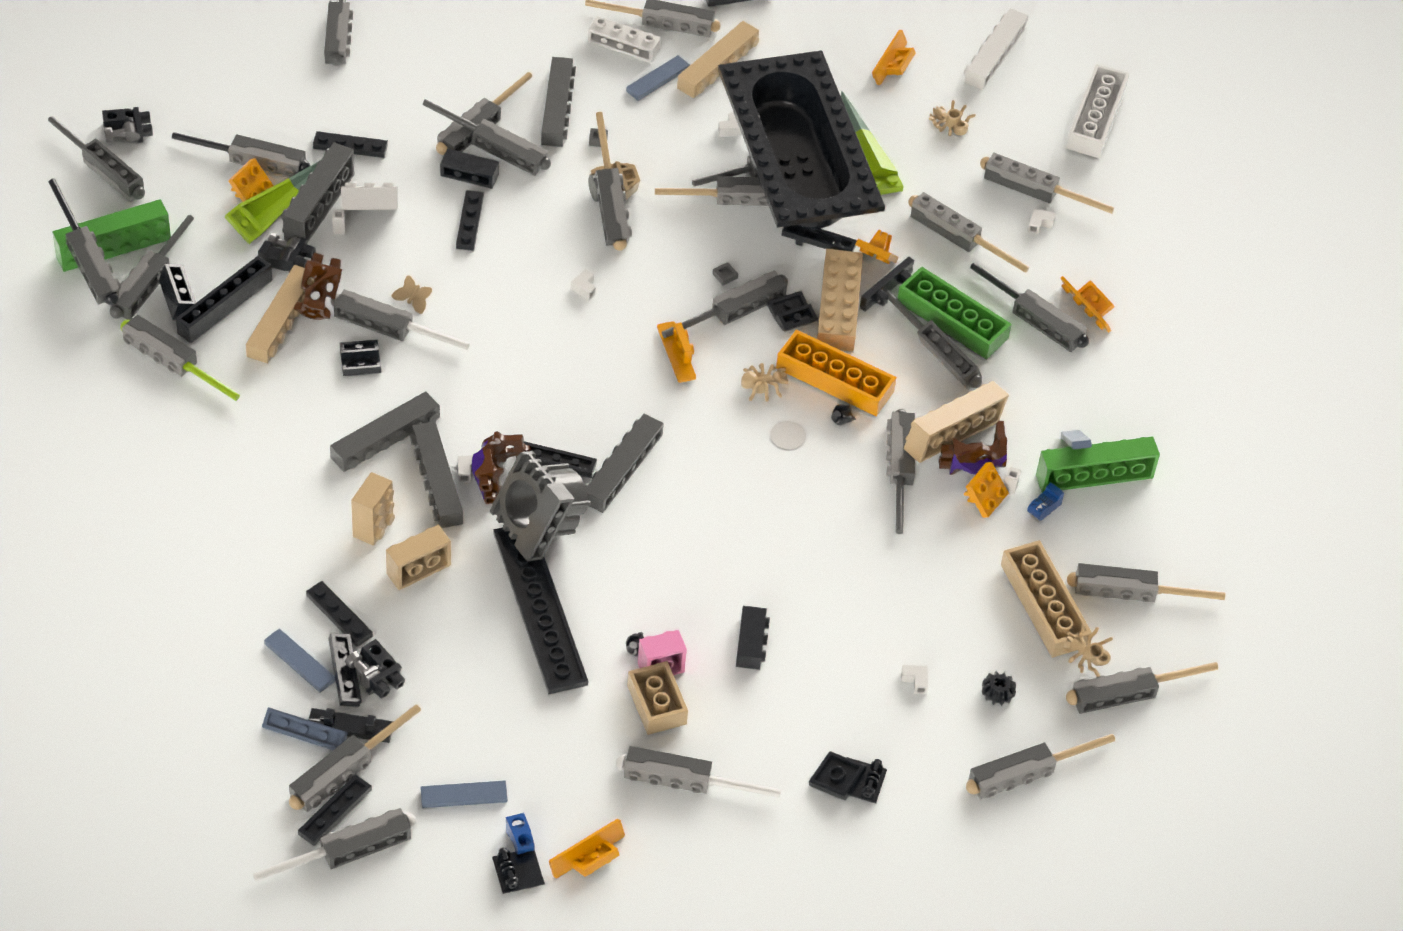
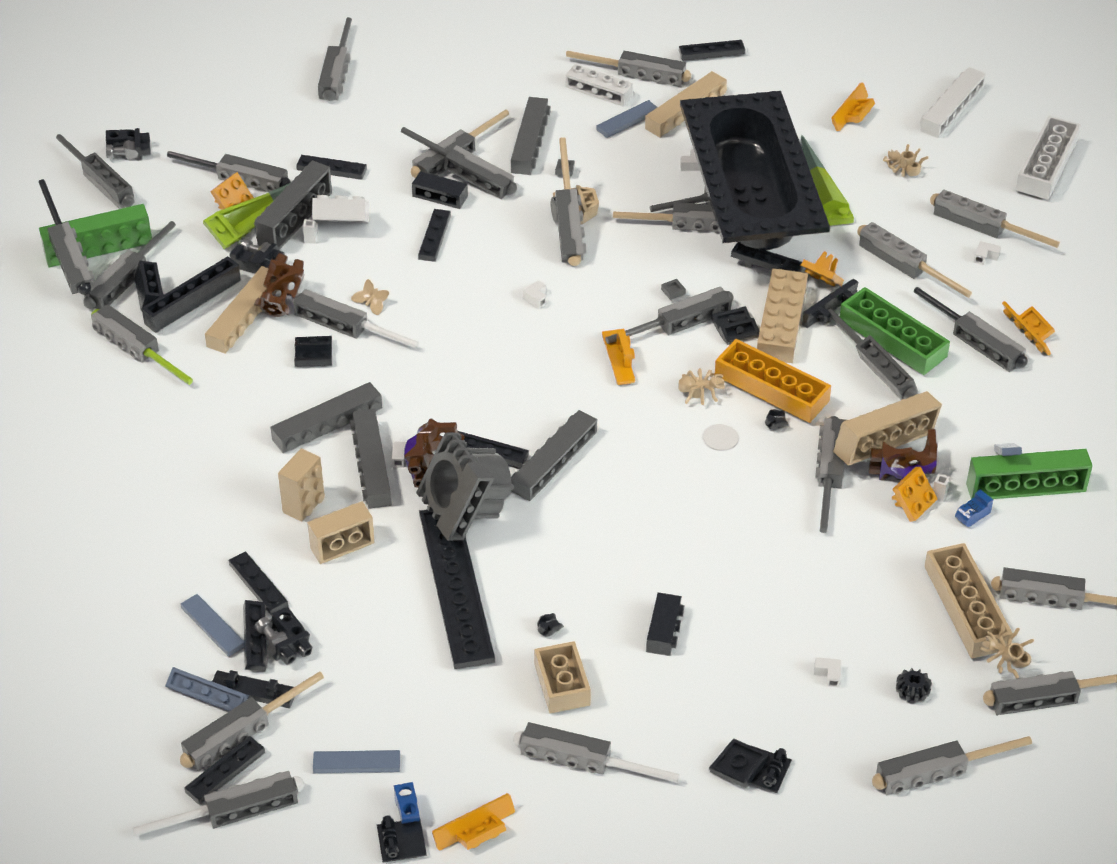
camera: 10 degrees right, 5 degrees down
(663, 648) = (573, 627): bright pink brick -> none

